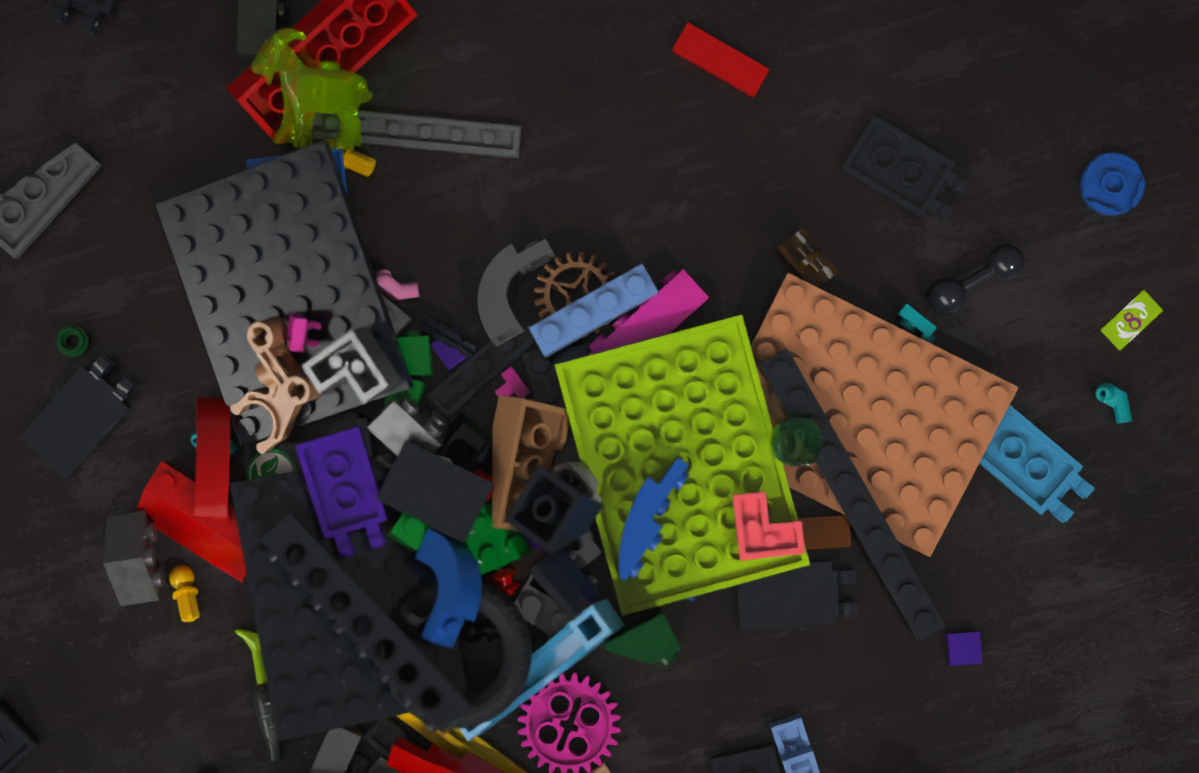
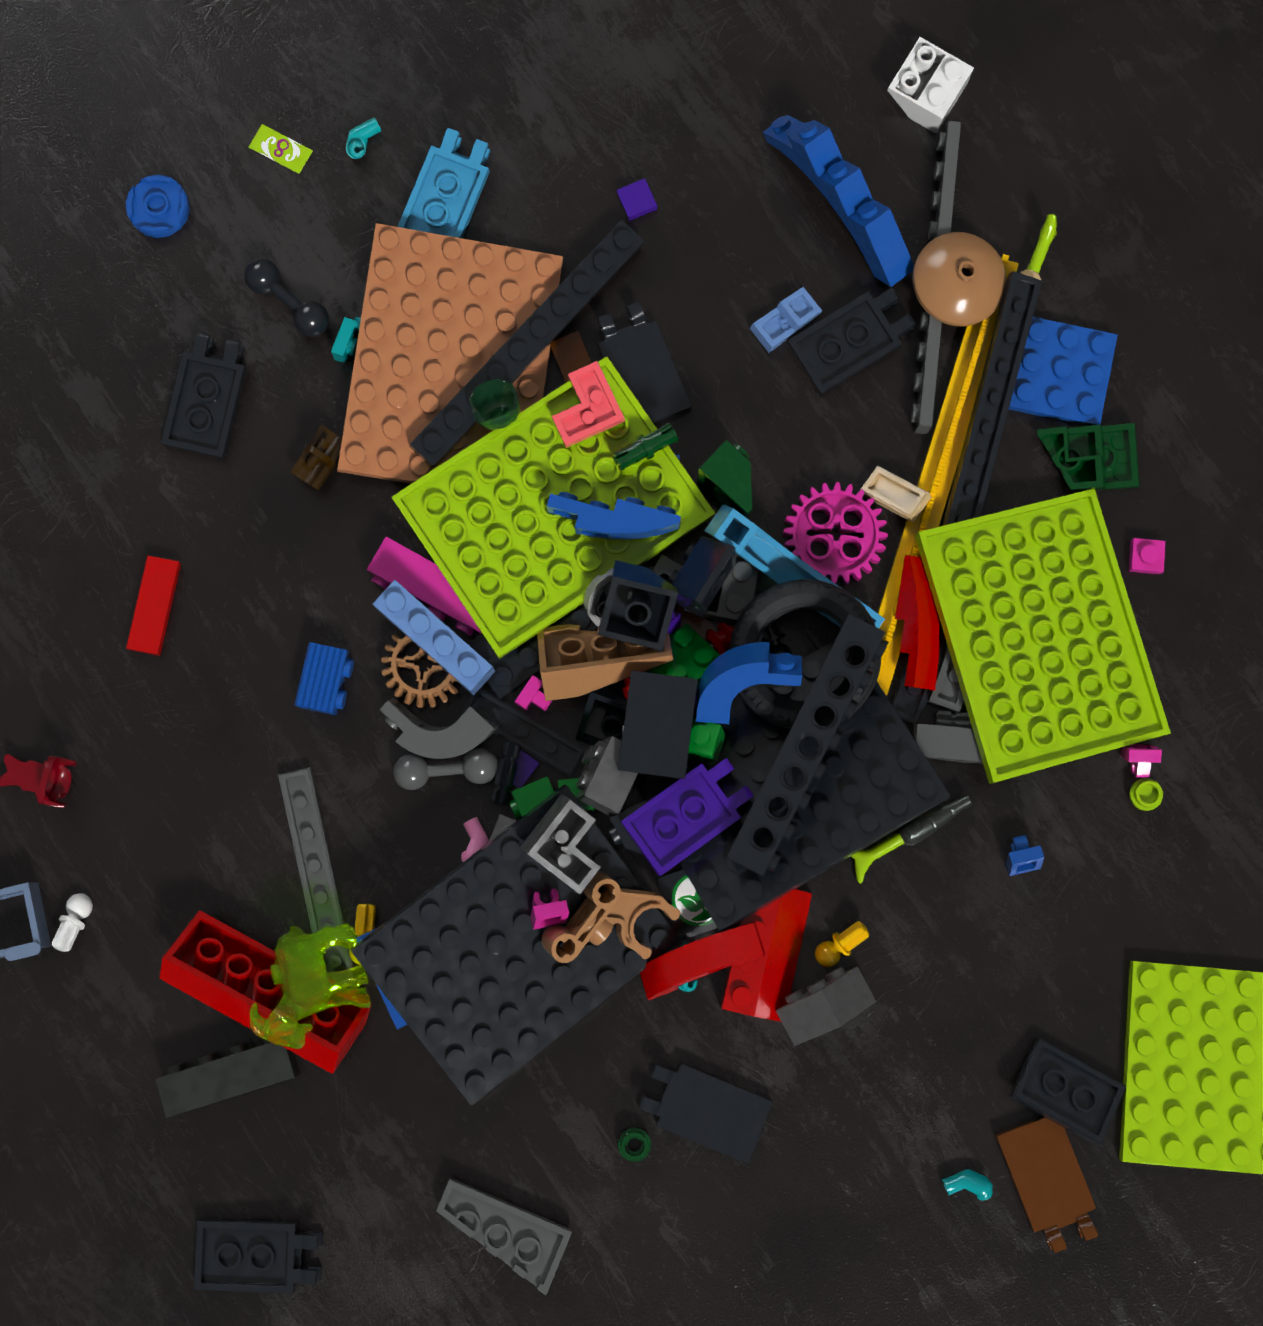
camera: 105 degrees left, 5 degrees down
(463, 312) = (477, 766): none -> dark grey piece
(595, 196) = (324, 679): none -> blue brick
(706, 570) = (645, 446): none -> dark green pin

